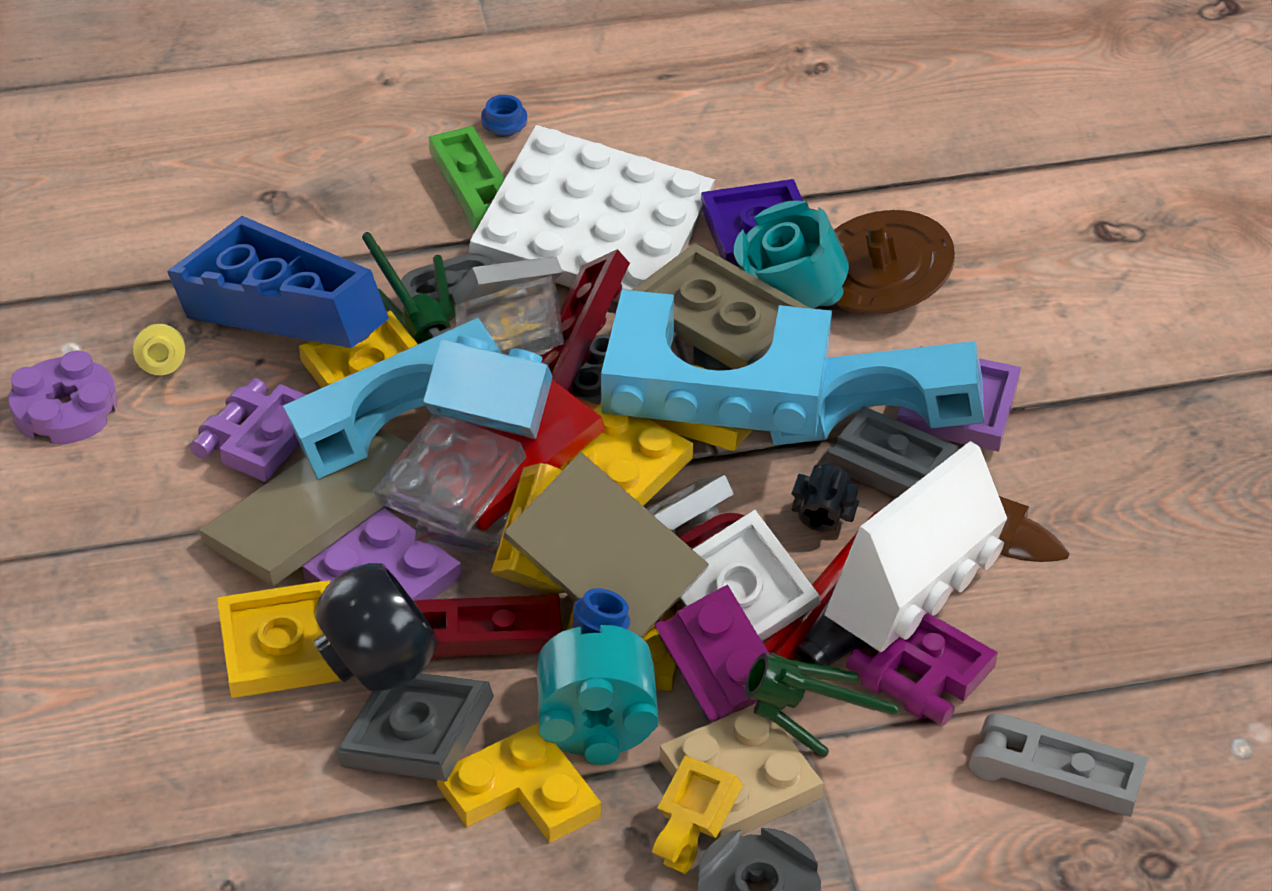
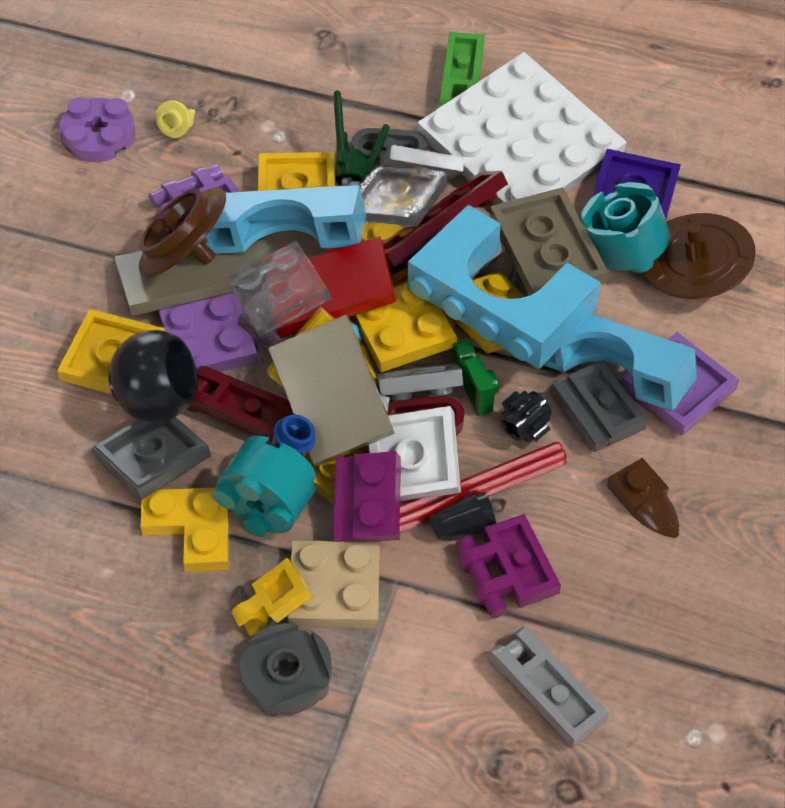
camera: 30 degrees right, 10 degrees up
(278, 286) = (264, 105): blue wedge -> none
(286, 455) = (181, 230): none -> reddish brown piece
(488, 386) = (324, 241): medium azure brick -> none
(504, 115) = (515, 34): blue plate -> none
(750, 483) = (477, 381): none -> green plate
(782, 683) = (383, 538): dark green plant -> none
(920, 551) = (546, 486): white slope -> none

